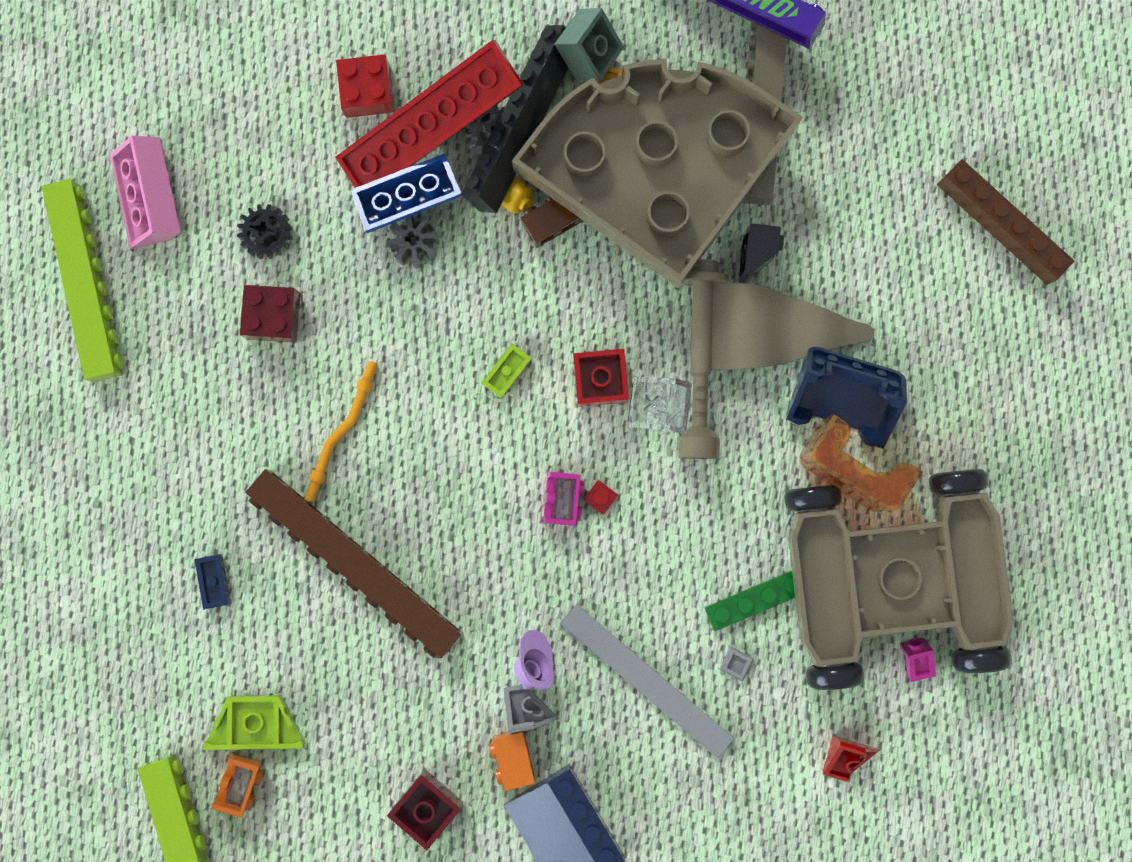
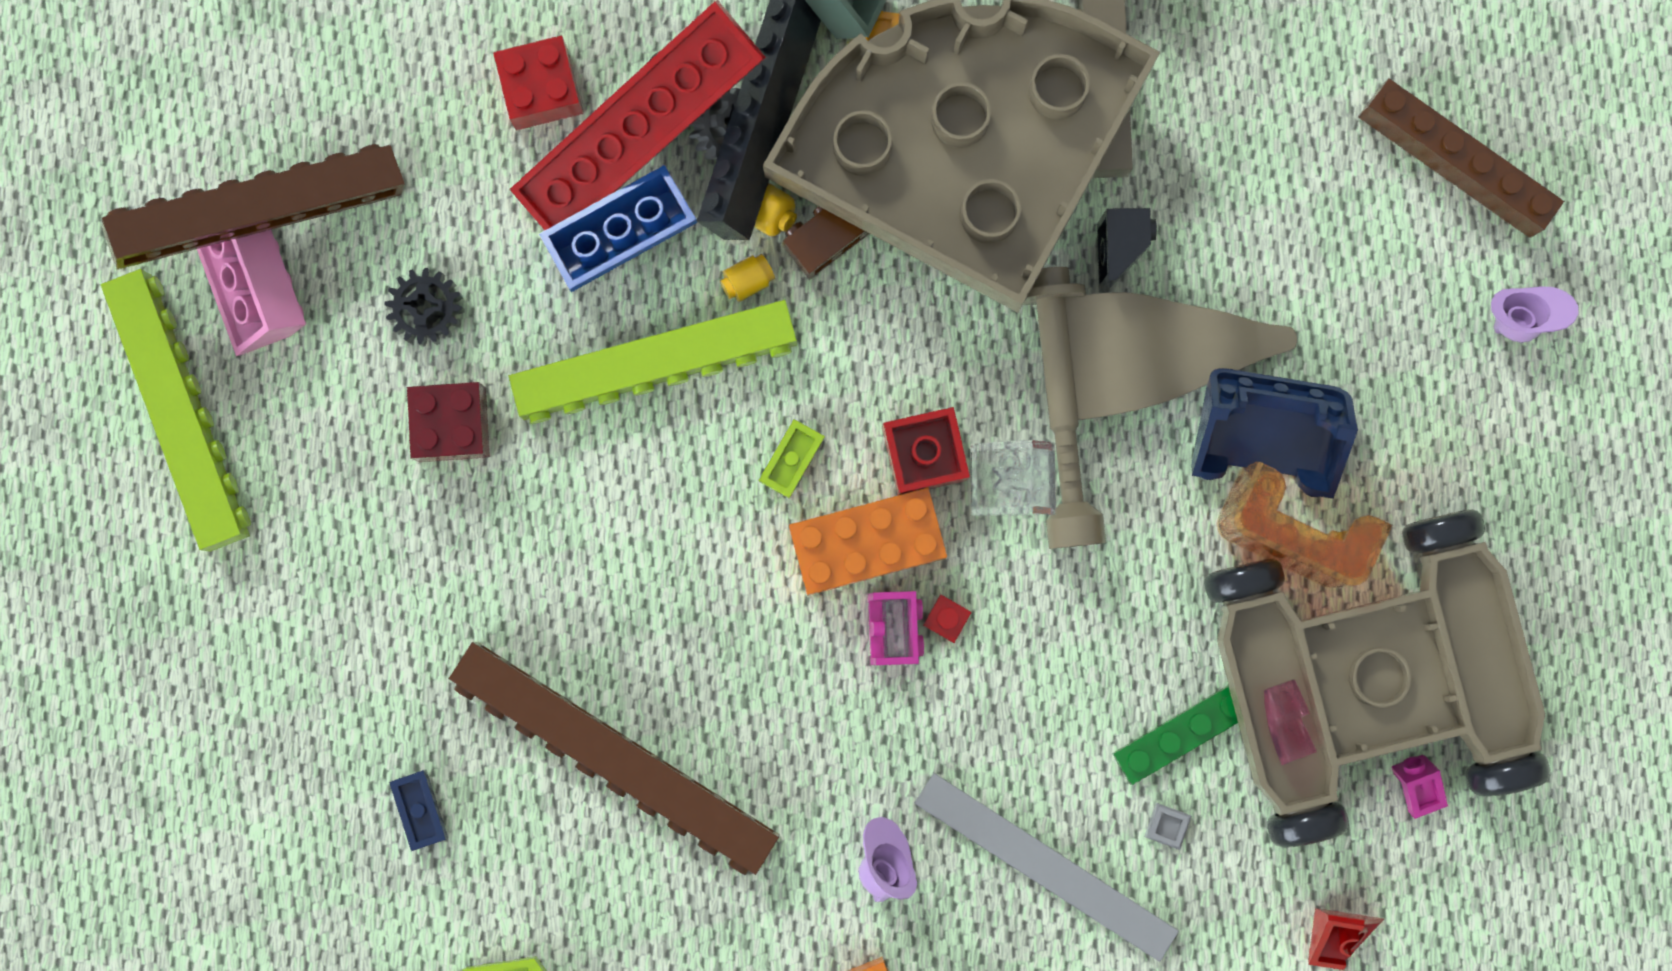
camera: 10 degrees left, 0 degrees up
(151, 144) = (251, 206): none -> reddish brown brick
(318, 475) = (546, 641): light orange bar -> none
(405, 246) = (627, 302): dark grey gear -> none
(418, 290) = (652, 361): none -> lime brick
(492, 240) = (747, 277): none -> yellow brick
(526, 710) = (883, 930): light grey slope -> none
(551, 435) = (868, 541): none -> orange brick
(828, 593) = (1284, 712): none -> clear pink slope
(1038, 336) = (1528, 312): none -> lavender piece

